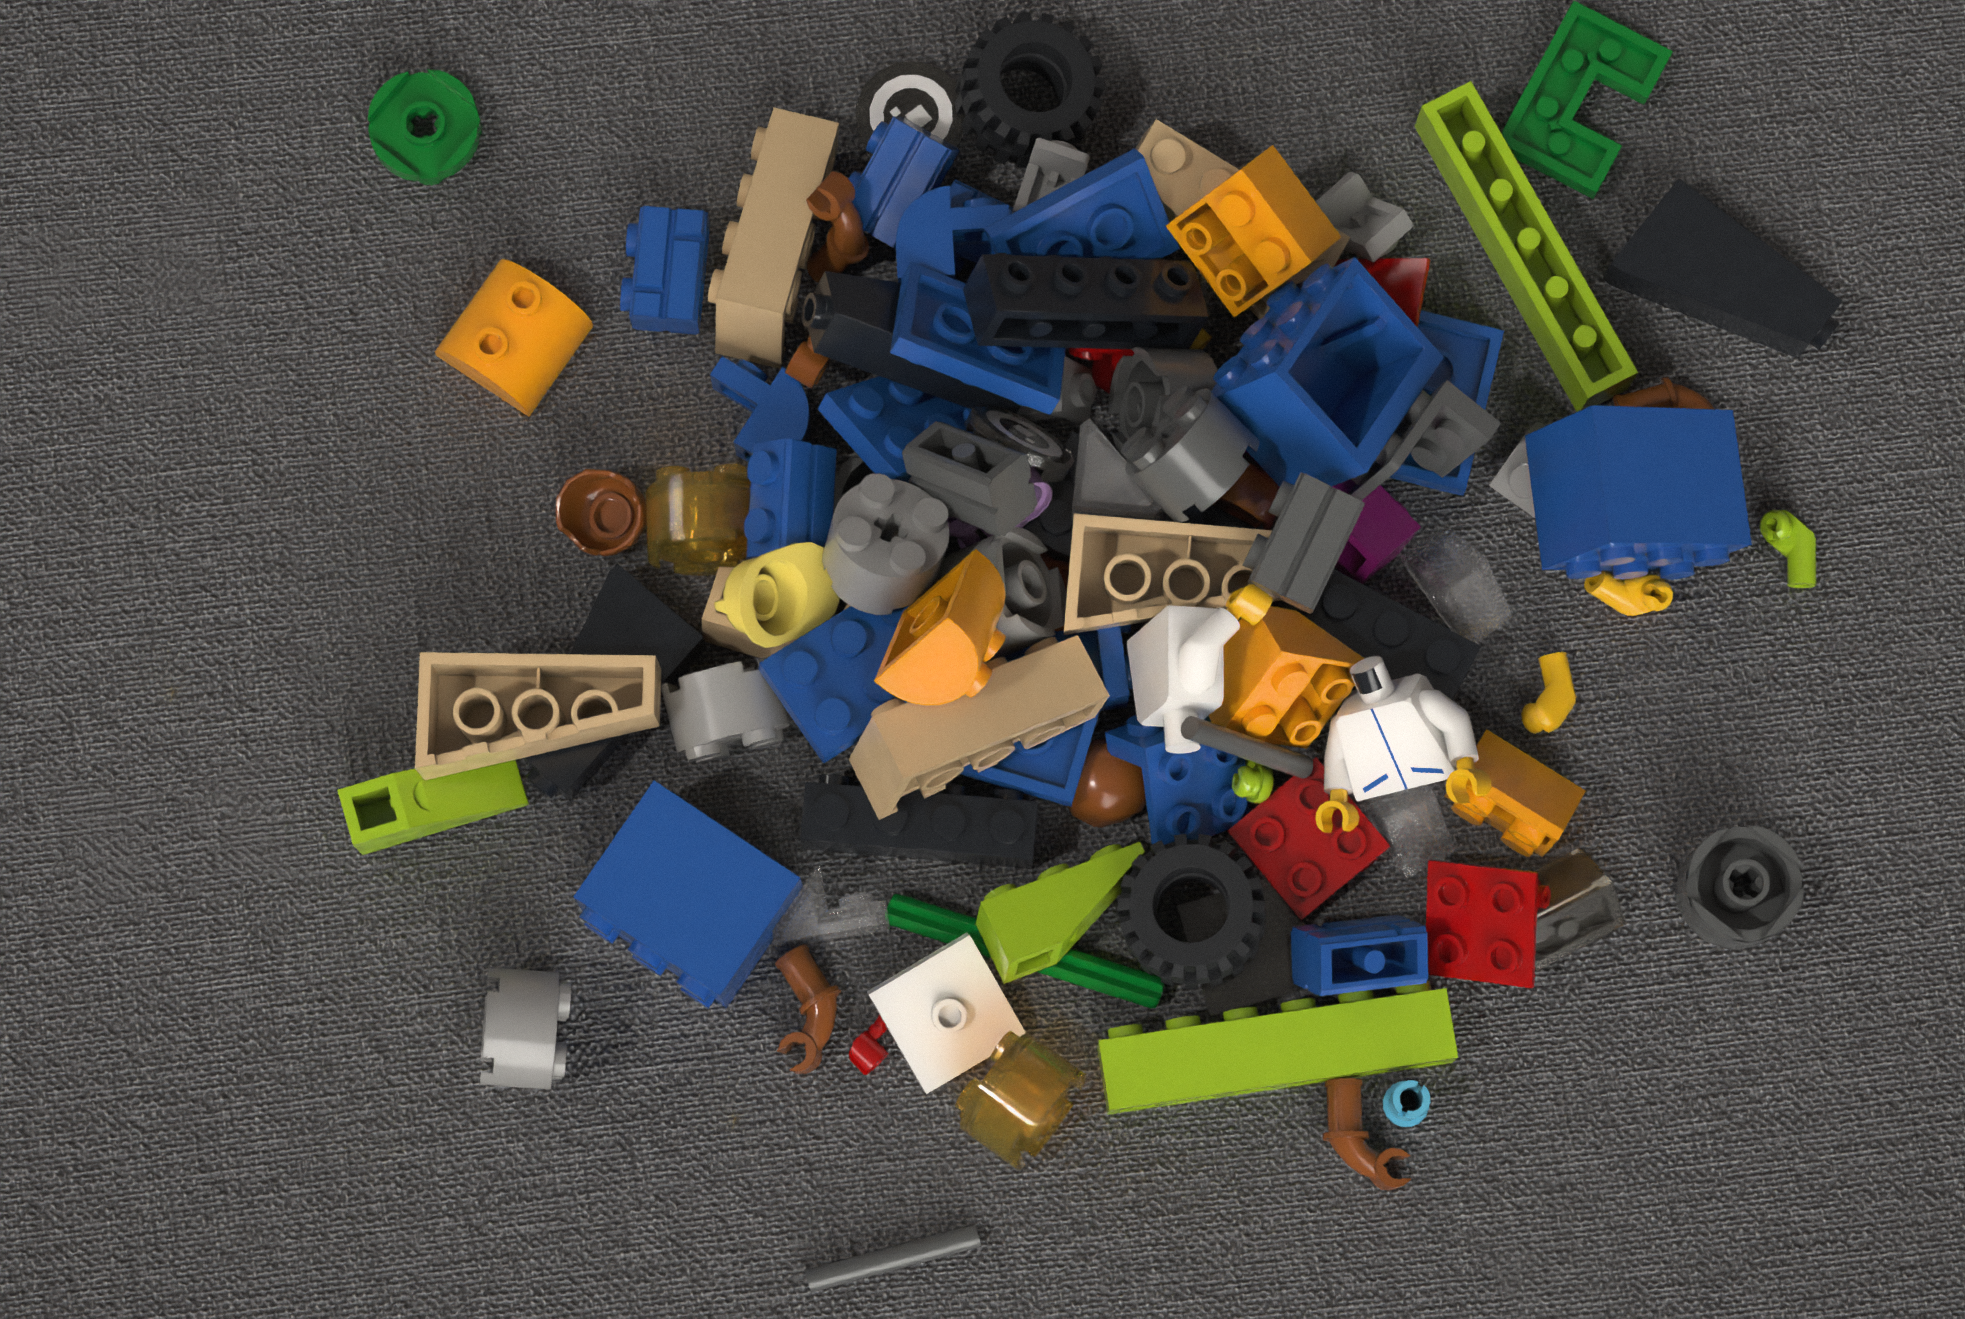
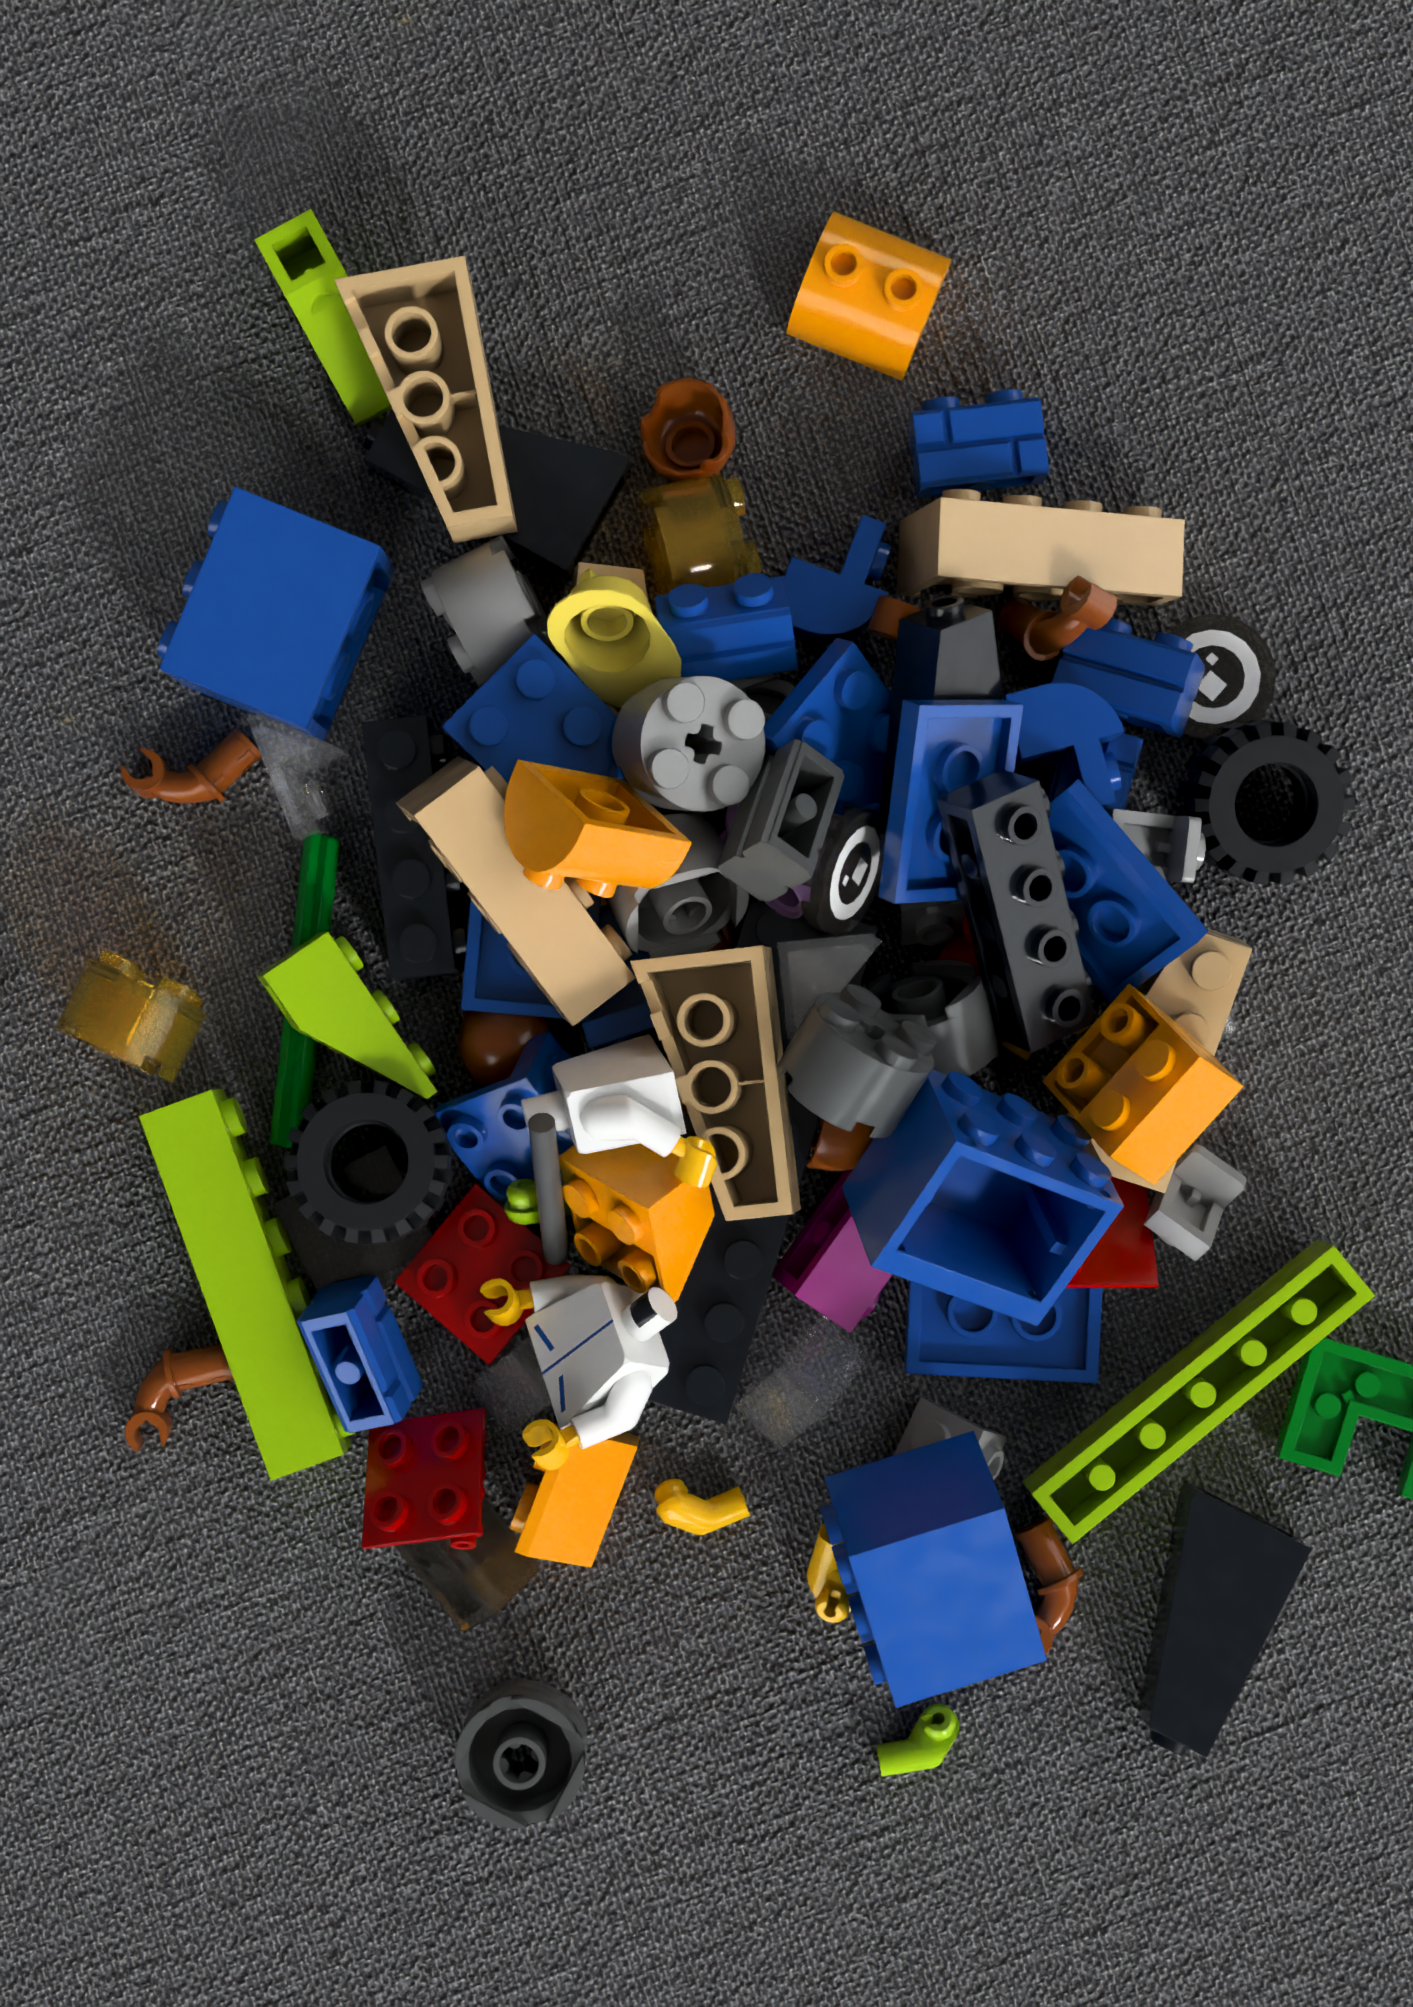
camera: 80 degrees right, 10 degrees up
(421, 95) = (1073, 108): green plate -> none
(523, 1028) = (101, 468): light grey brick -> none
(866, 1051) = (164, 843): red hand -> none
(945, 1012) = (217, 920): white plate -> none
(1304, 542) = (774, 1210): dark grey brick -> none
(1393, 1107) = (232, 1425): medium azure pin -> none
(1437, 432) = (951, 1335): dark grey bracket -> none

